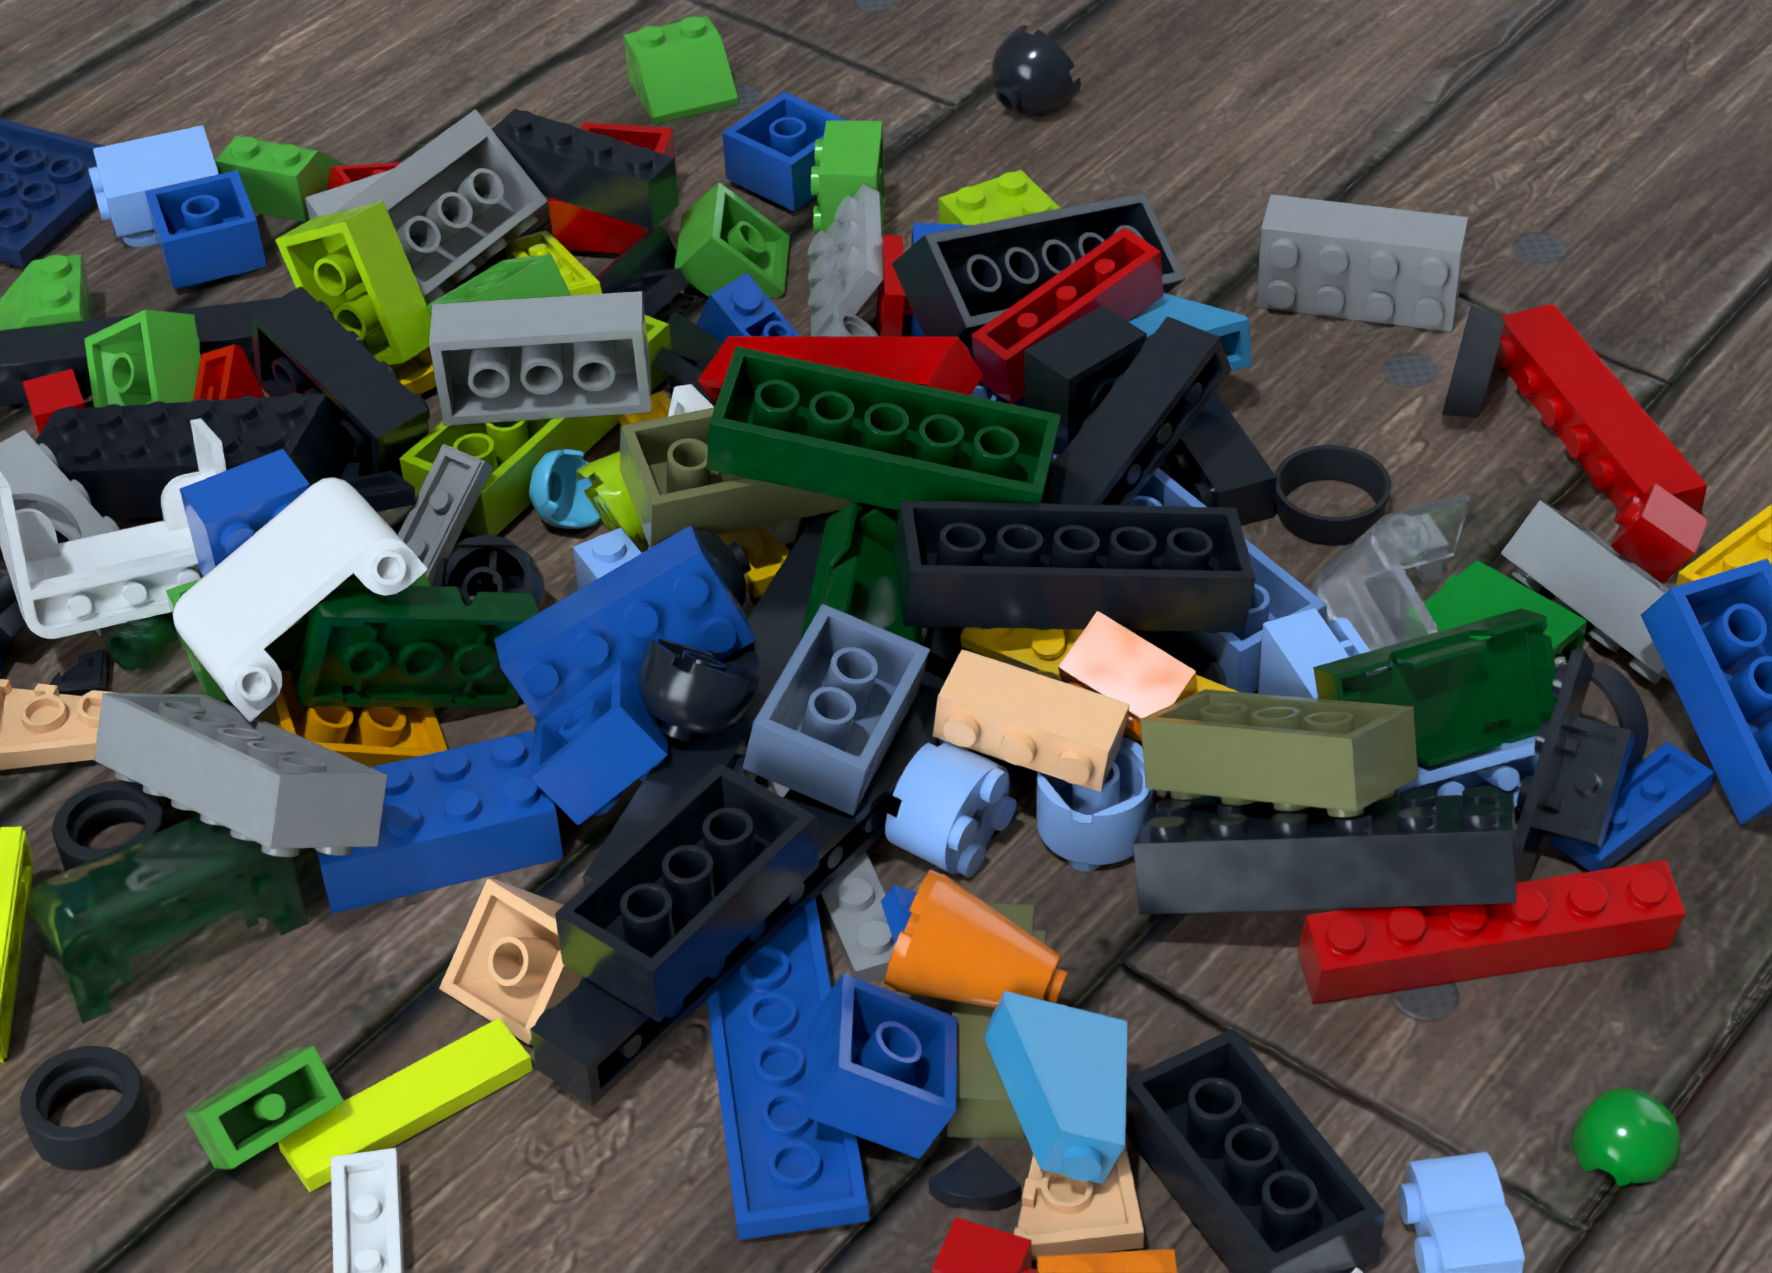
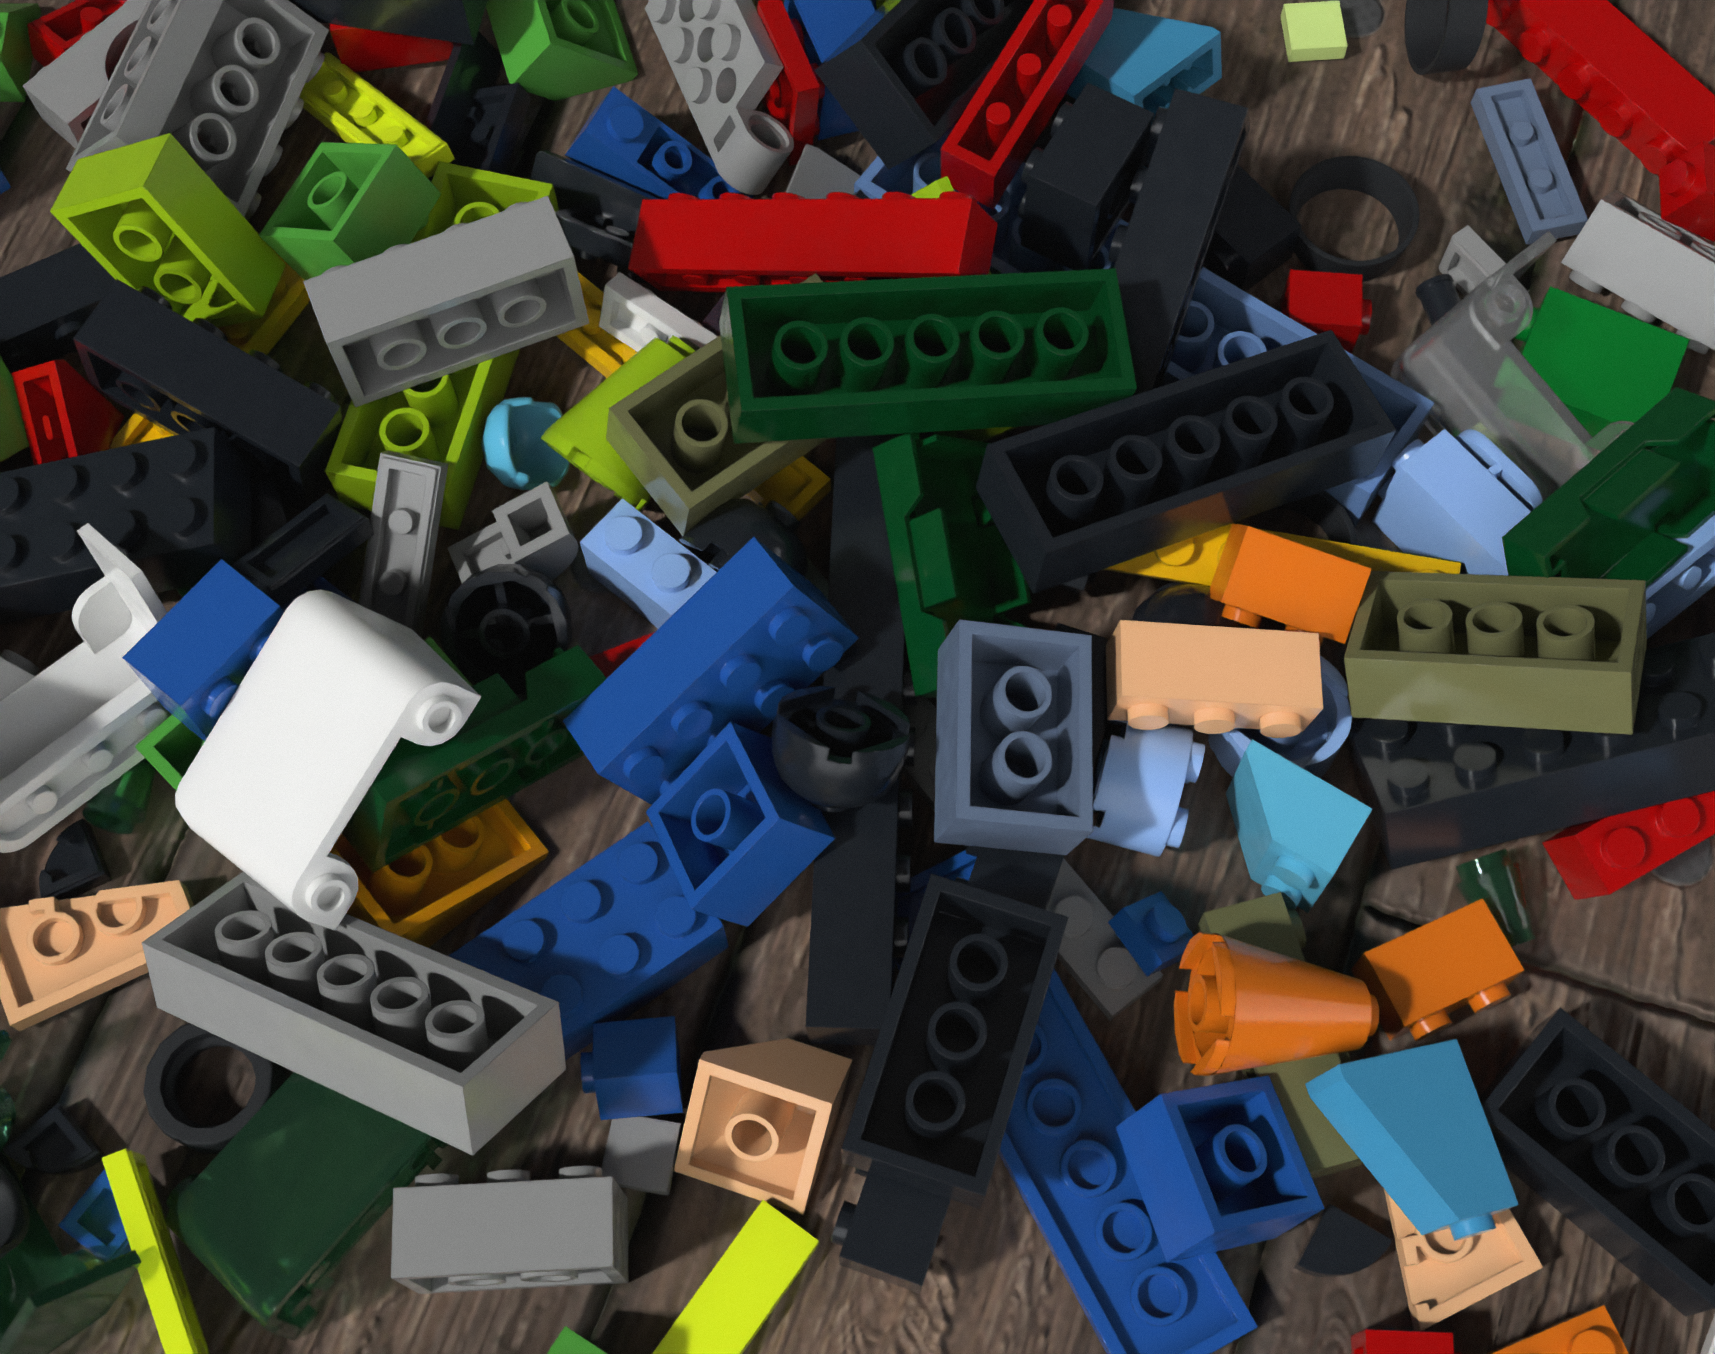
camera: 20 degrees left, 25 degrees up
(284, 969) = (510, 1232): none -> light grey brick
(415, 968) = (642, 1153): none -> light grey tile
(437, 896) = (634, 1068): none -> blue brick
(548, 538) = (527, 532): none -> light grey brick
(1072, 867) = (1291, 825): none -> medium azure slope
(1163, 998) = (1438, 971): none -> orange brick
(1234, 971) = (1503, 891): none -> clear green cone
(1282, 538) = (1328, 303): none -> red brick
(1364, 371) = (1313, 31): none -> yellowish green tile
(1508, 481) = (1528, 160): none -> sand blue plate

